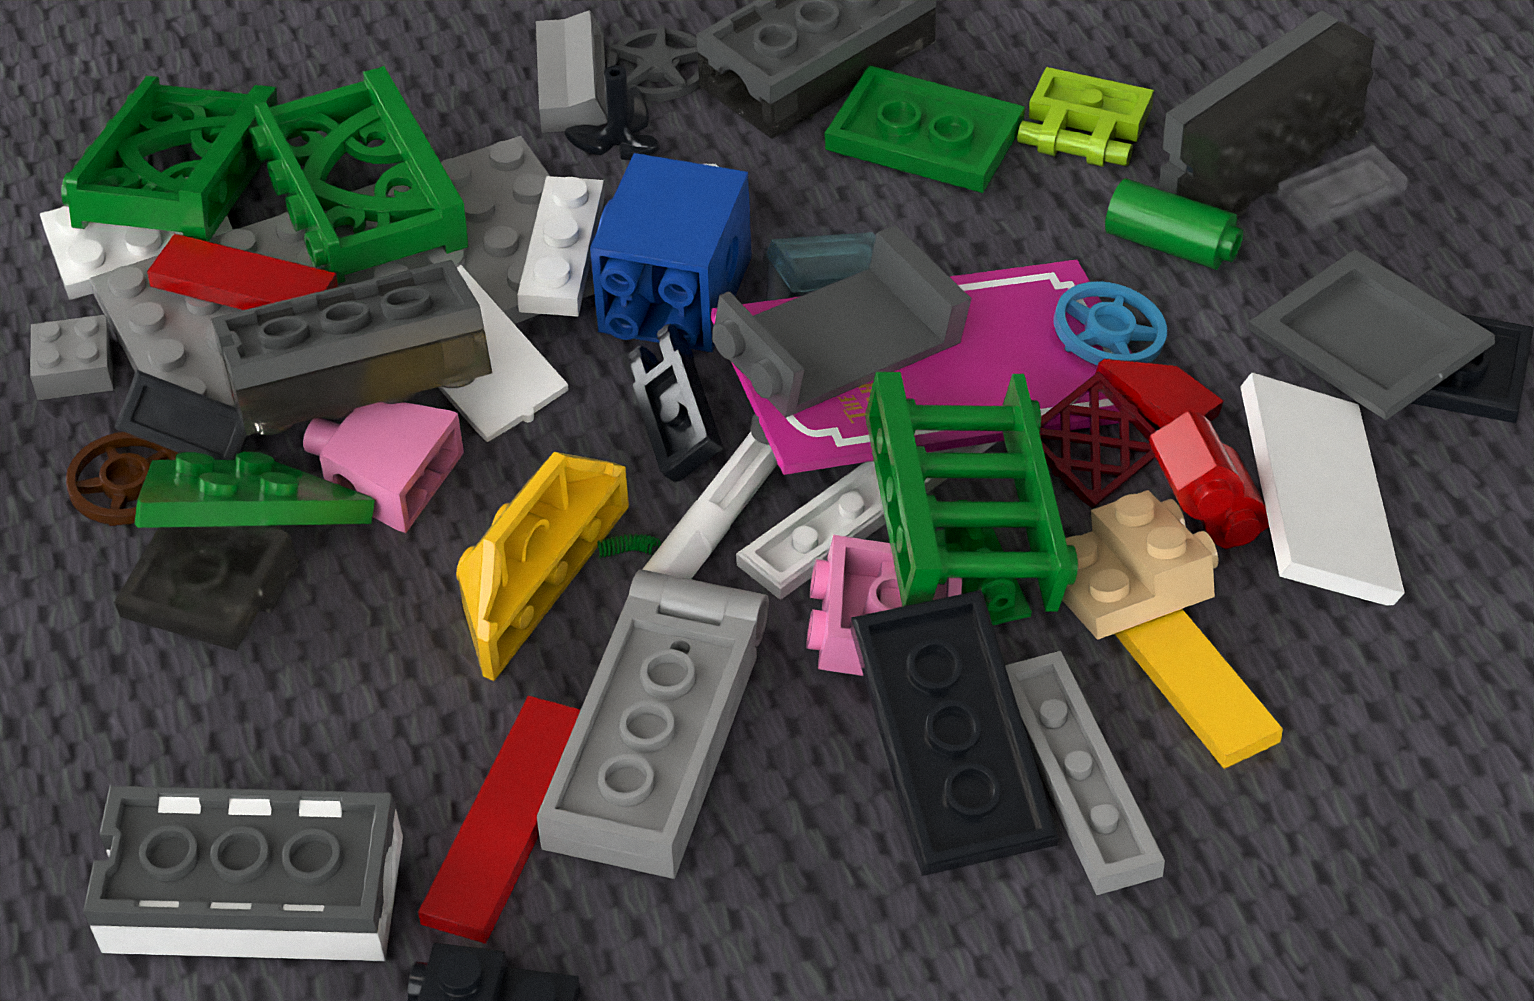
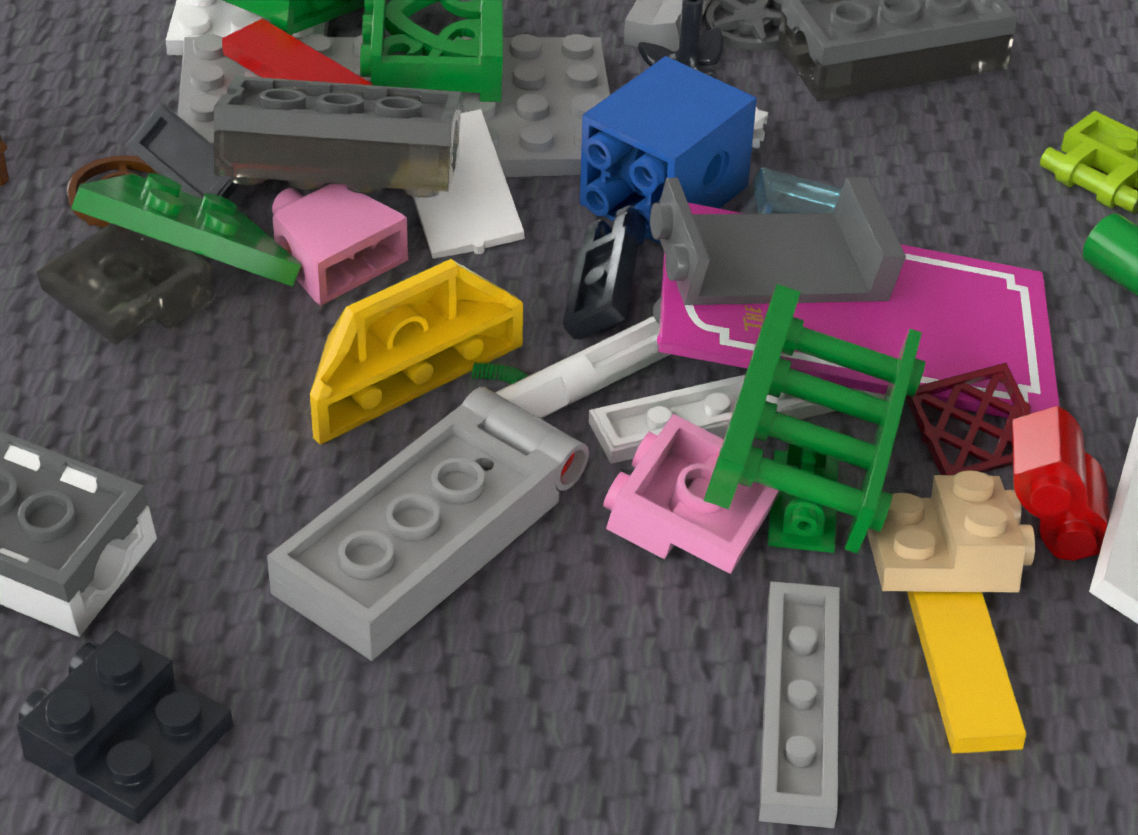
camera: 20 degrees right, 5 degrees down
(71, 357) = (134, 89): light grey piece -> none
(499, 825) = (235, 568): red tile -> none
(560, 246) = (556, 137): white plate -> none
(925, 128) = (958, 129): green plate -> none
(952, 733) = (692, 623): black tile -> none
(1109, 323) = (1042, 332): dark azure wheel -> none
(1160, 390) = (1049, 388): red tile -> none

